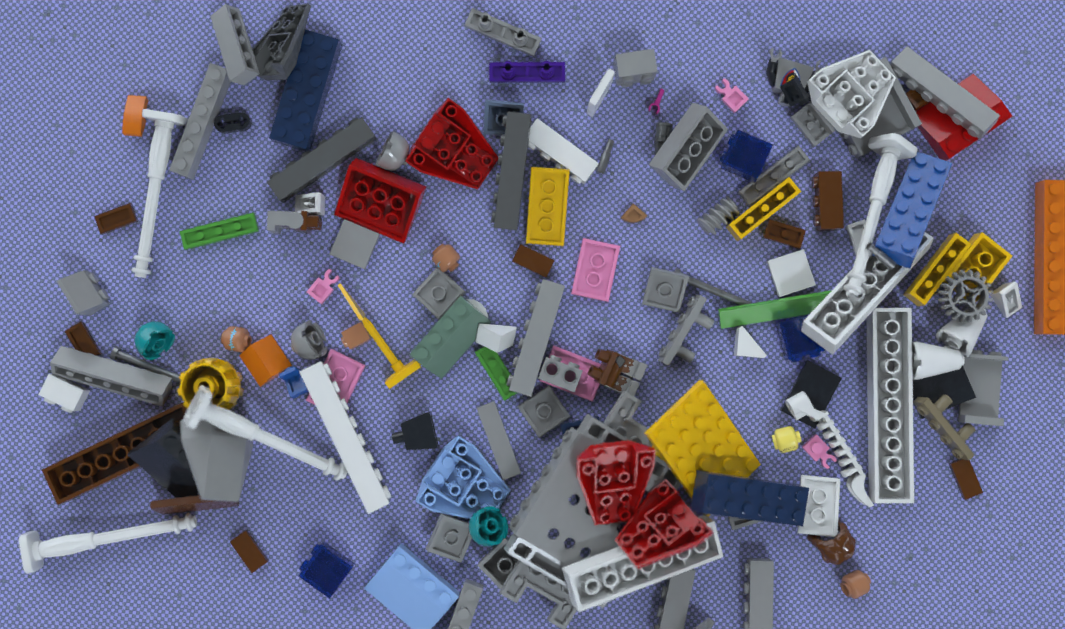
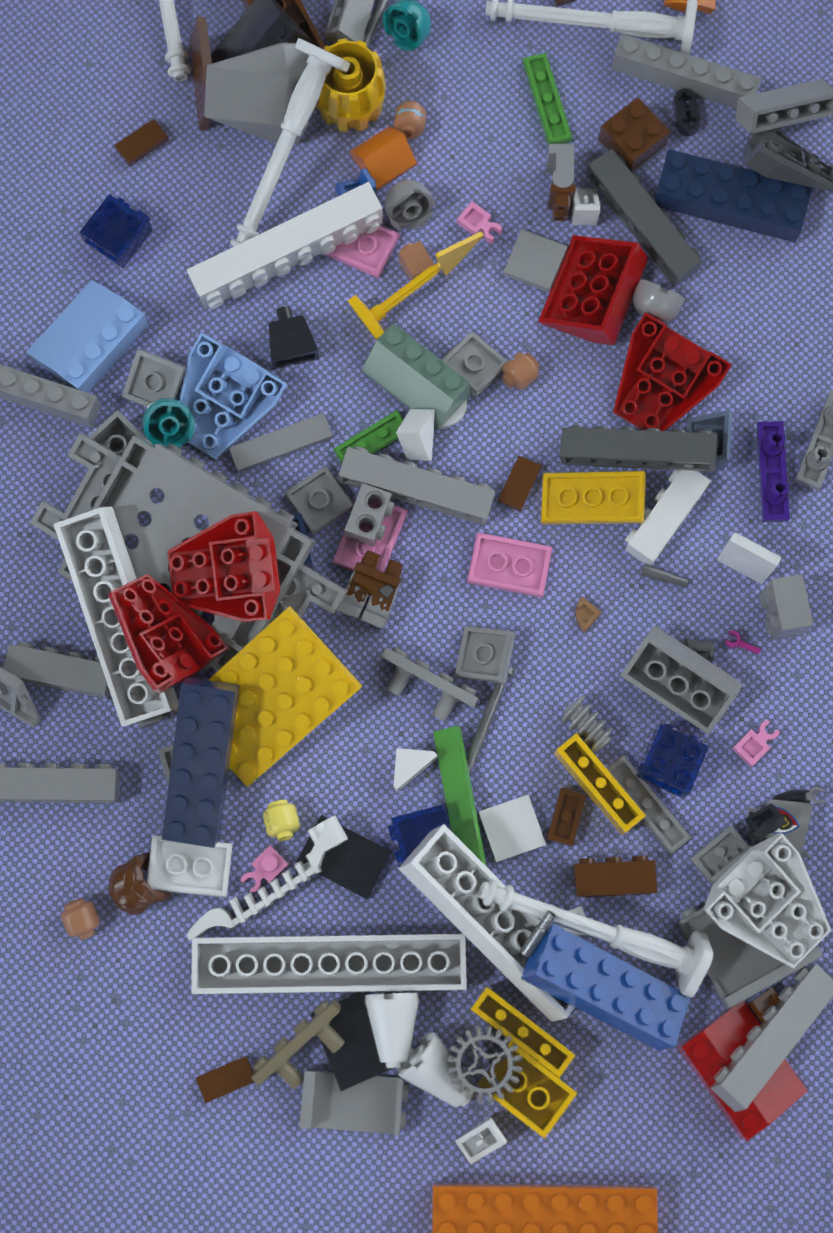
camera: 90 degrees right, 10 degrees down
(253, 164) = (634, 134): none -> reddish brown brick

